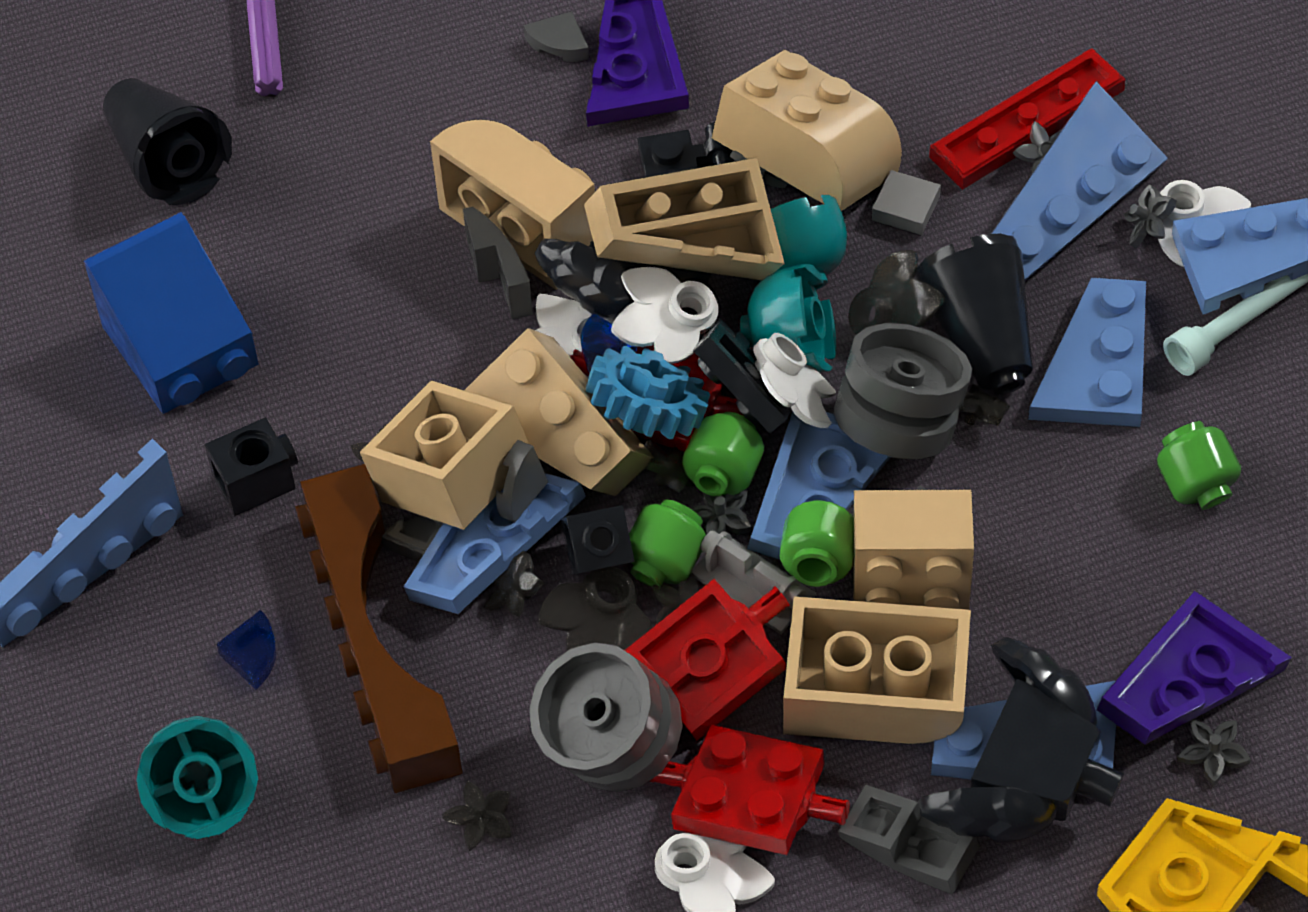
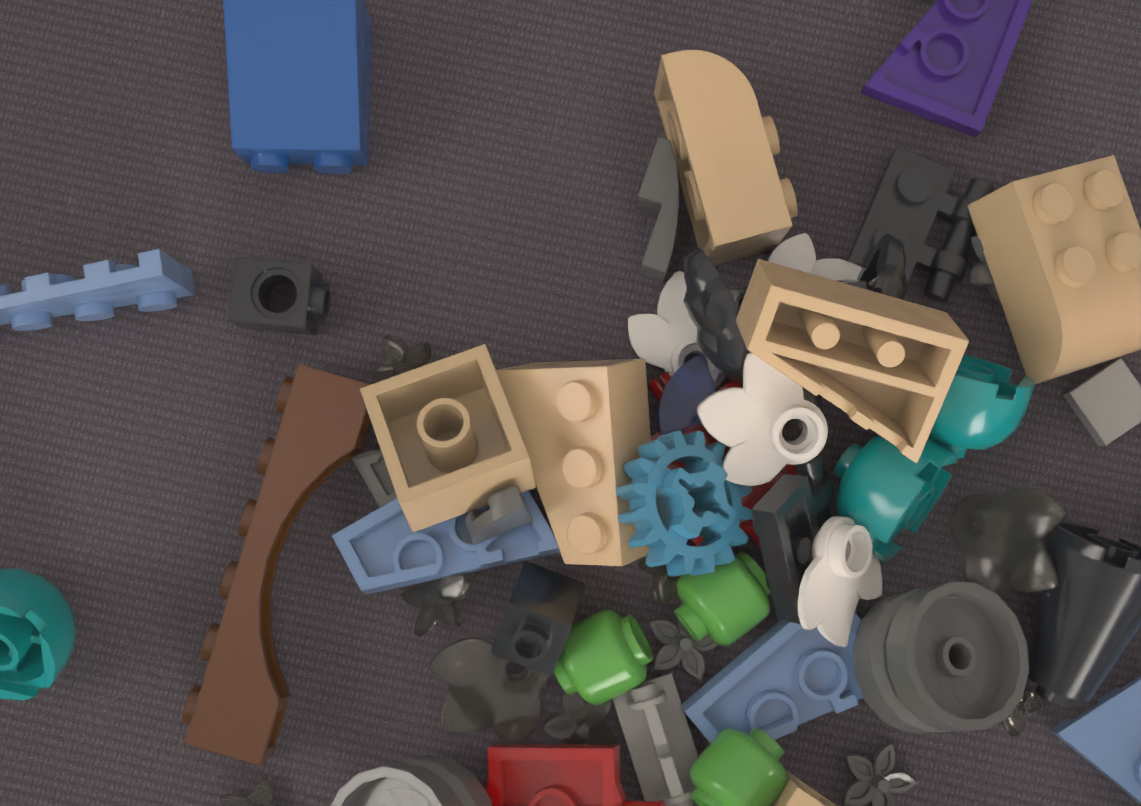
camera: 30 degrees right, 30 degrees up
(250, 649) = (162, 497): clear blue tile -> none

